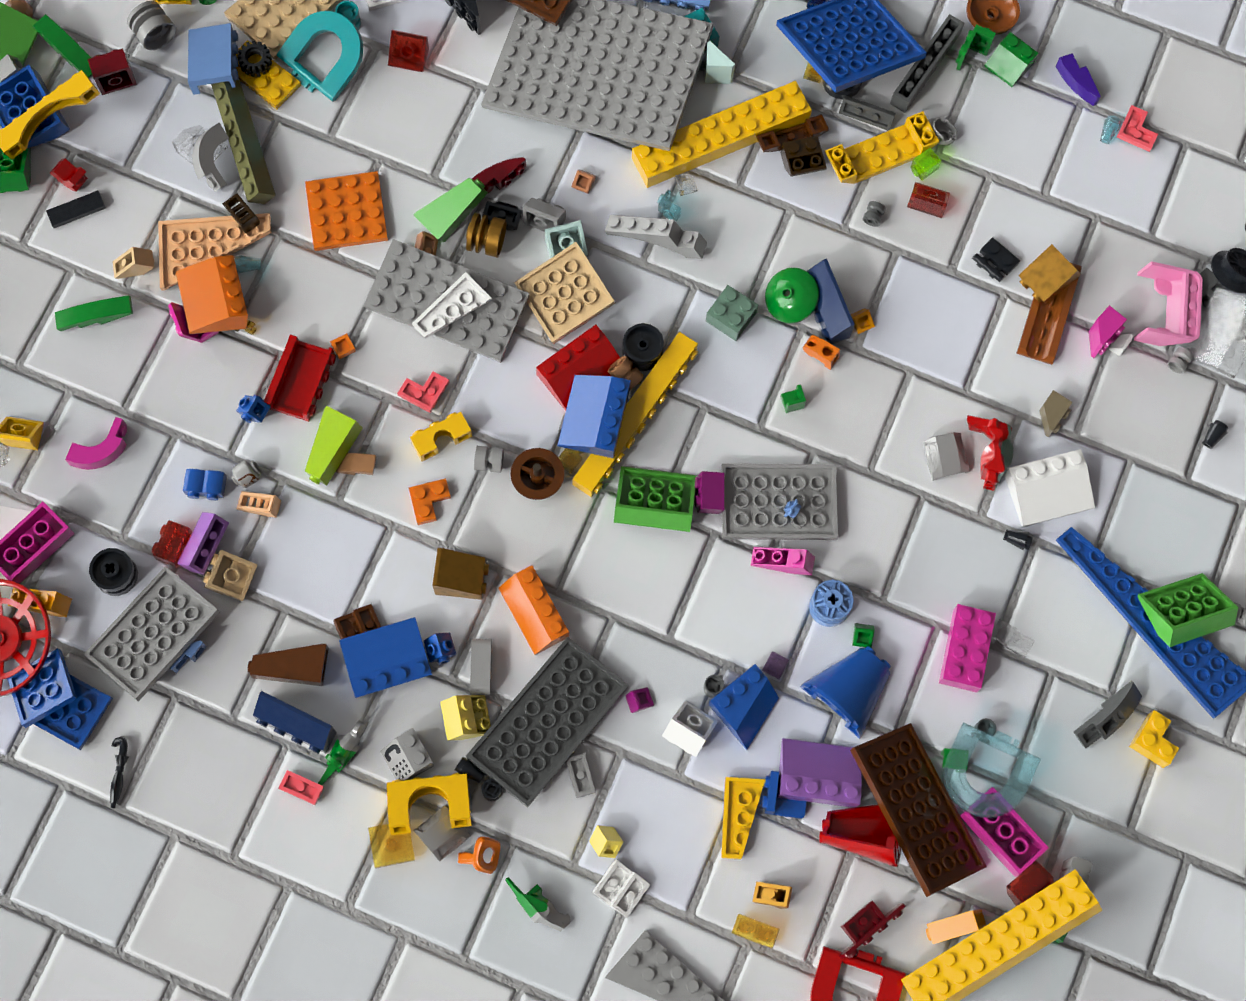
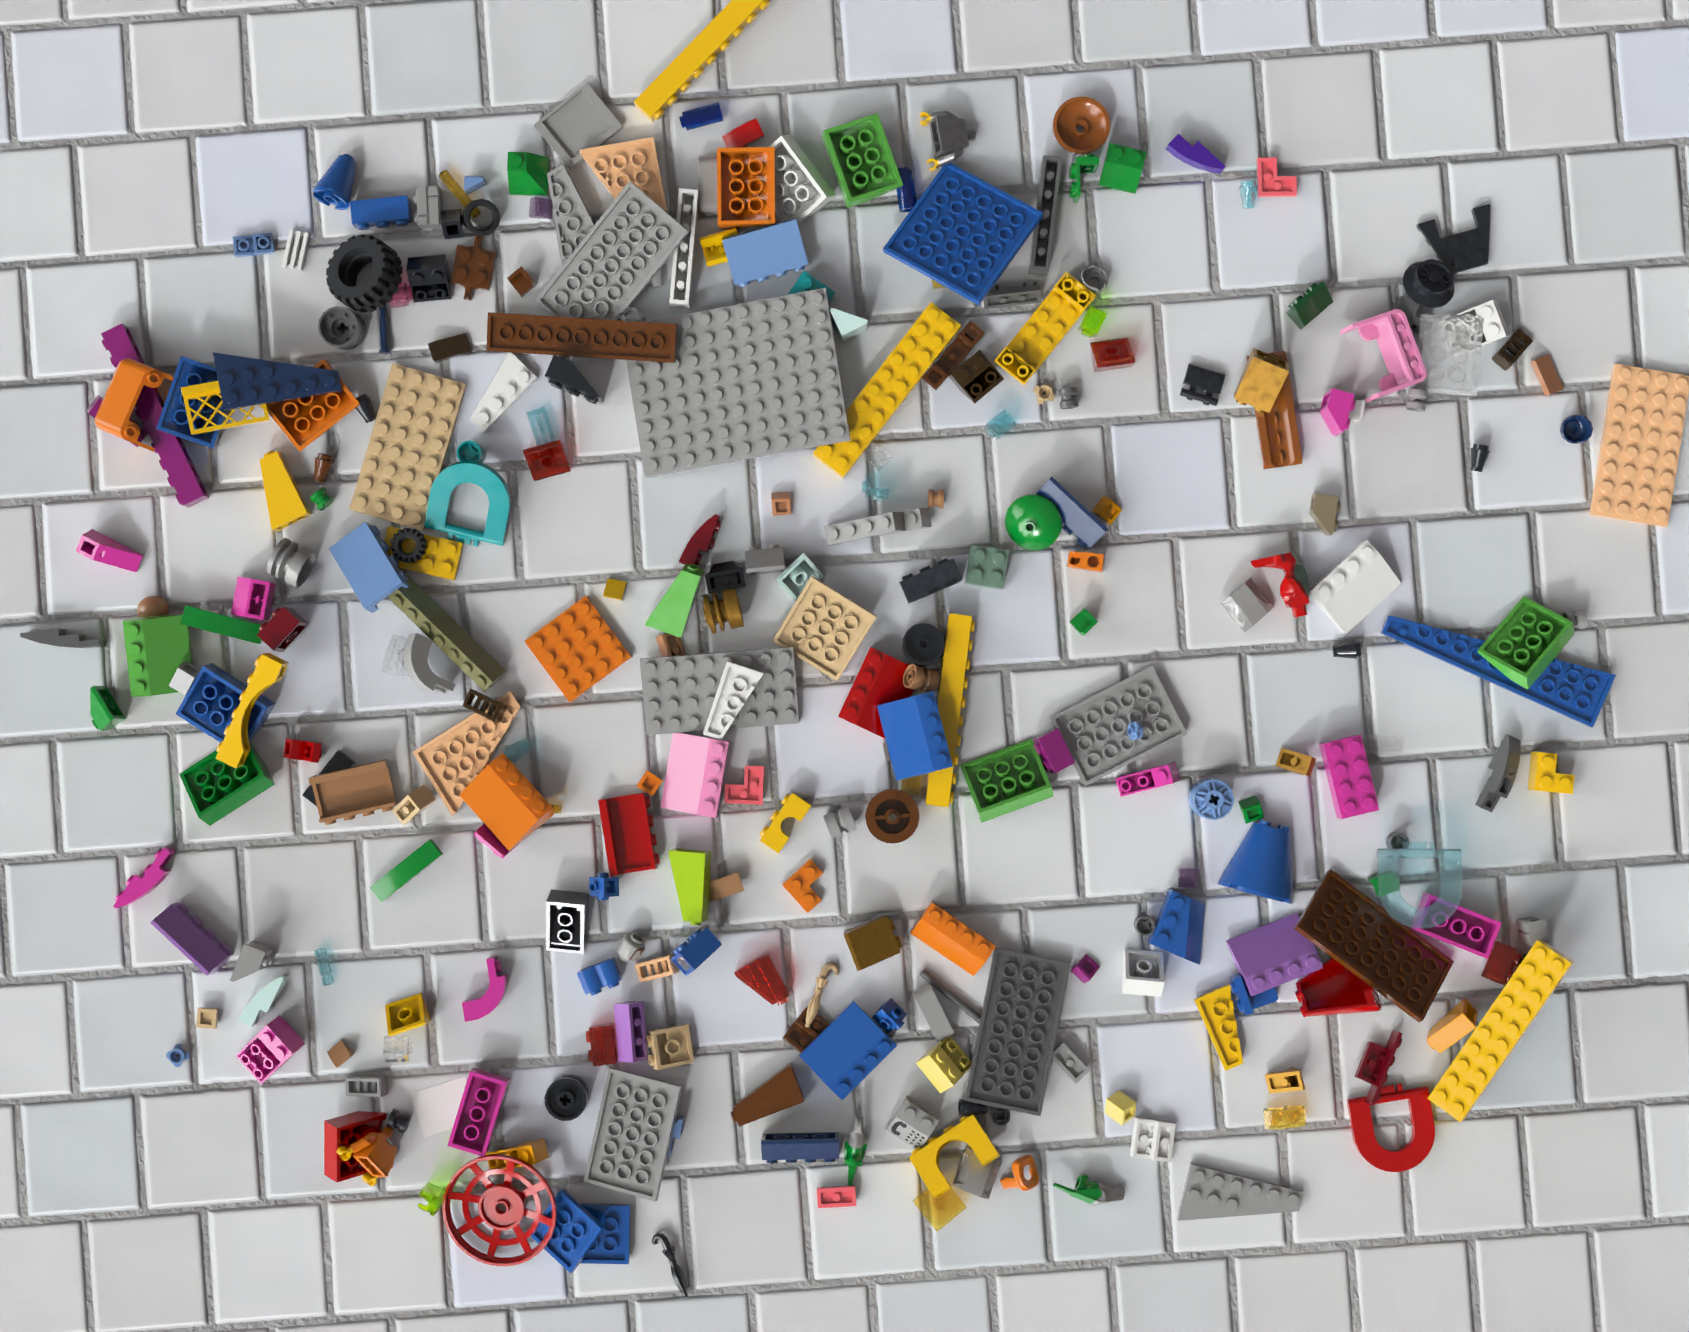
camera: 20 degrees left, 15 degrees up
(90, 226) = (353, 791): none -> medium nougat panel
(104, 38) = (253, 598): none -> dark pink slope
(203, 423) = (566, 921): none -> black slope
(300, 500) = (696, 951): none -> blue piece
(347, 559) = (764, 979): none -> clear red slope
(377, 604) = (814, 1003): none -> tan piece
(387, 359) = (695, 774): none -> bright pink slope
(404, 179) = (614, 589): none -> yellow slope
(420, 15) = (536, 412): none -> clear light blue tile
(504, 660) = (950, 995): none -> dark grey bar
(678, 299) = (930, 580): none -> black wedge
(717, 237) = (935, 498): none -> medium nougat wheel
(804, 207) = (1000, 425): none -> clear light blue brick
(857, 197) = (1044, 388): none -> tan plate
(924, 611) = (1295, 762): none -> pearl gold slope
(1121, 237) = (1306, 308): none -> dark green slope

